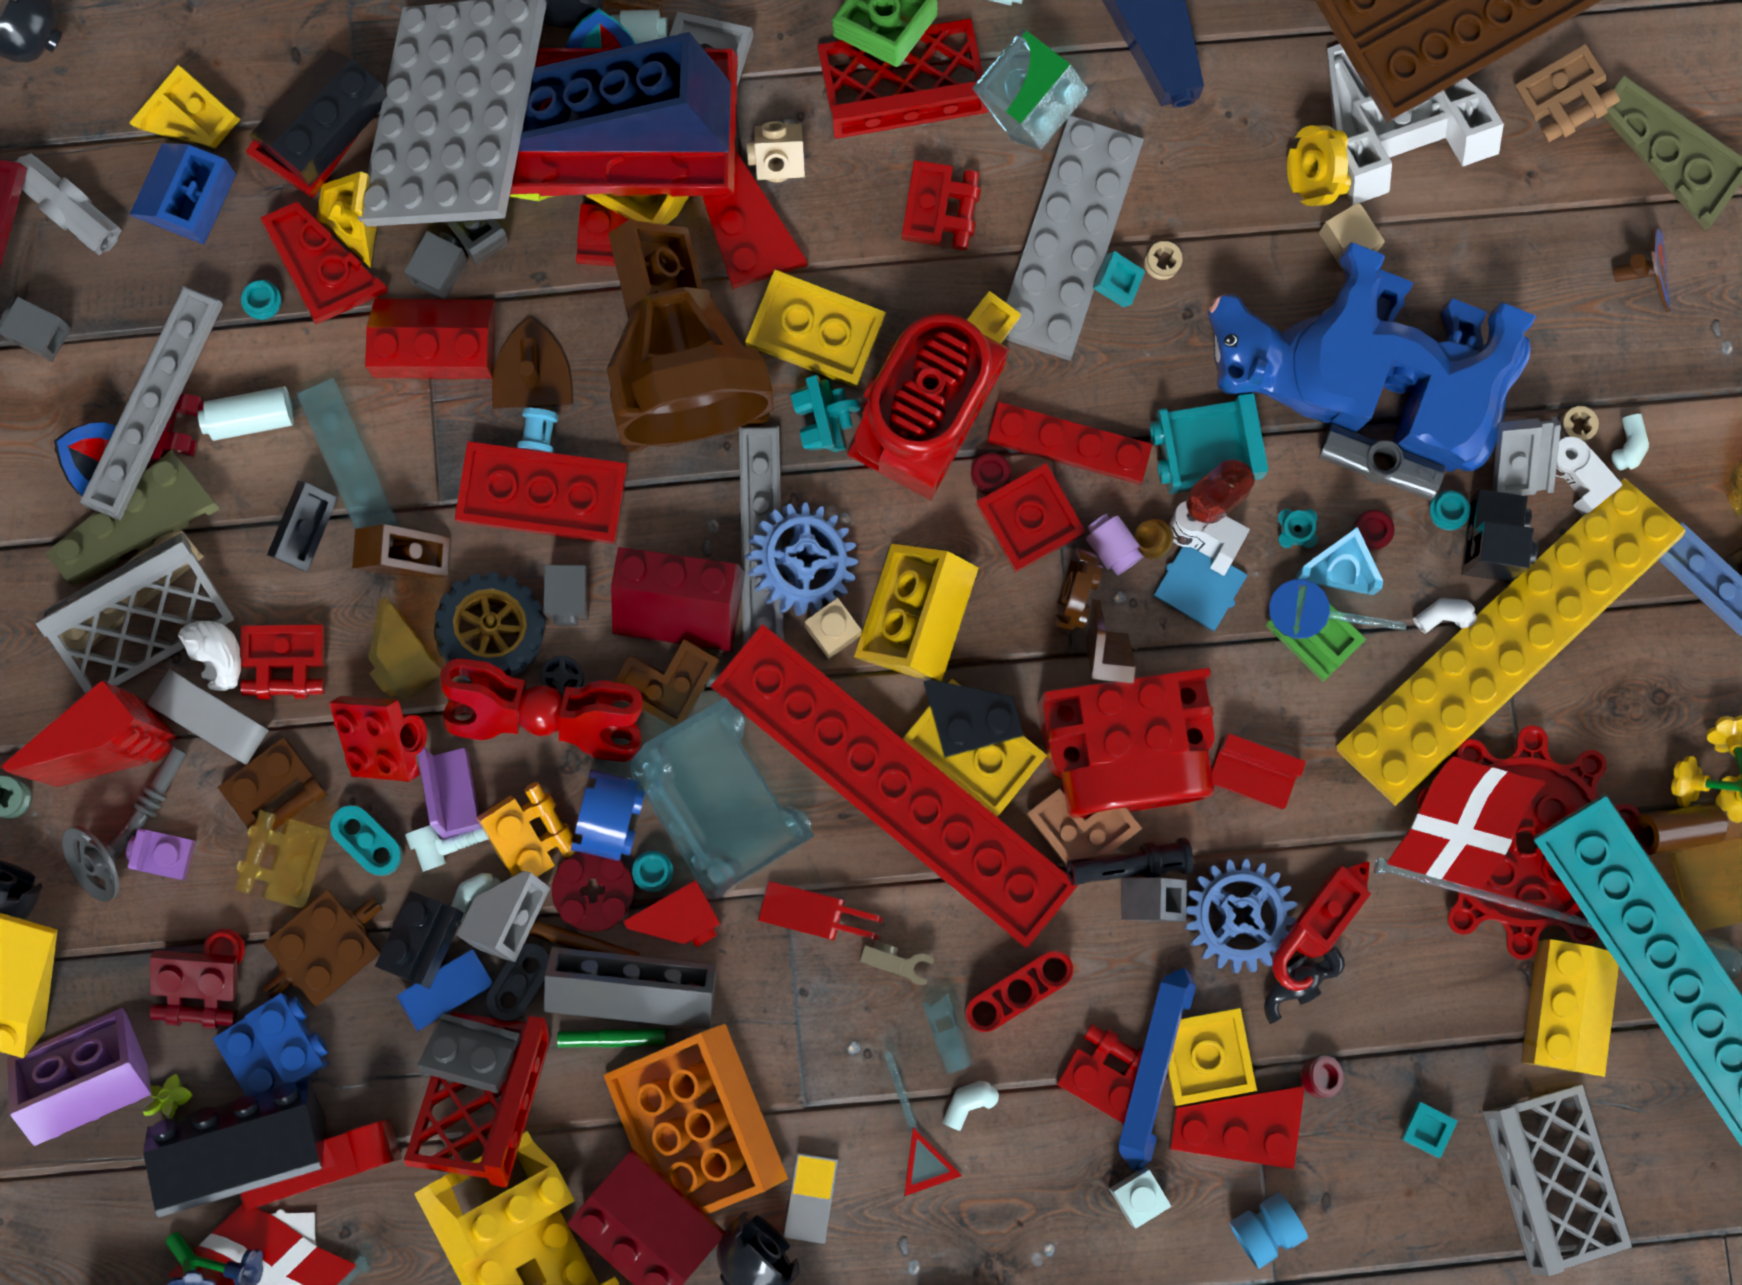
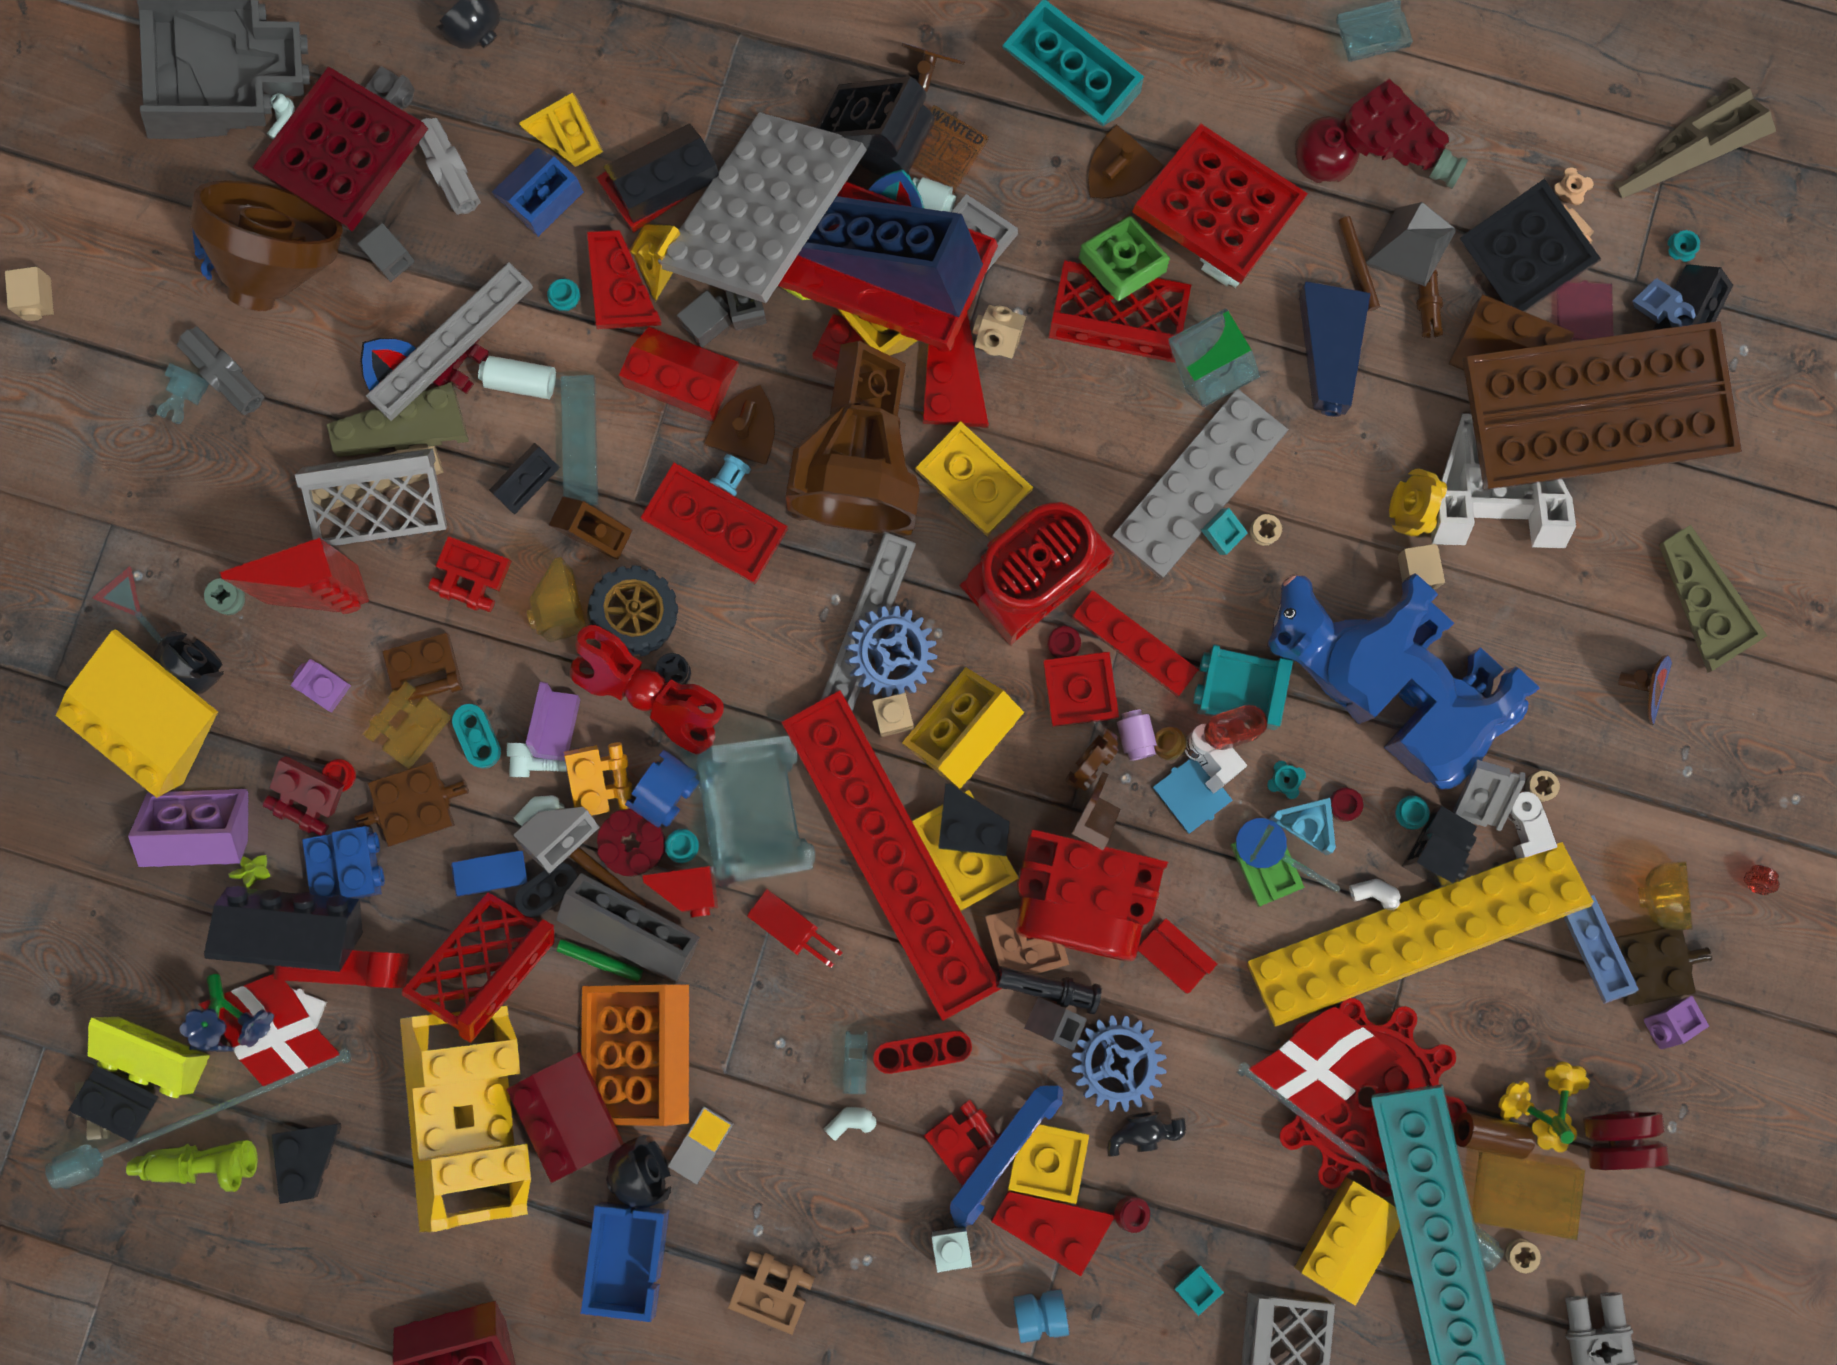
camera: 30 degrees right, 0 degrees up
(102, 856) = (272, 670): dark grey dish -> none
(207, 717) = (396, 595): light grey beam -> none
(217, 650) = (423, 546): white hair -> none
(378, 737) = (515, 662): red plate -> none
(419, 939) = (485, 827): black plate -> none
(469, 1053) = (486, 929): dark grey plate -> none
(566, 594) = (701, 608): dark grey brick -> none
(675, 598) = (782, 644): dark red slope -> none
(676, 692) = (754, 715): reddish brown plate -> none
(830, 411) = (958, 548): teal hips -> none
(884, 957) = (831, 985): dark tan plate -> none
(925, 1163) = (799, 1155): piece -> none
(928, 203) = (1100, 414): red plate -> none
(994, 317) = (1112, 524): yellow panel -> none
(1322, 920) = (1180, 1093): red plate -> none
(1406, 470) = (1389, 770): dark grey piece -> none
(1562, 83) = (1636, 512): medium nougat plate -> none
(1635, 446) = (1581, 820): light aqua arm -> none

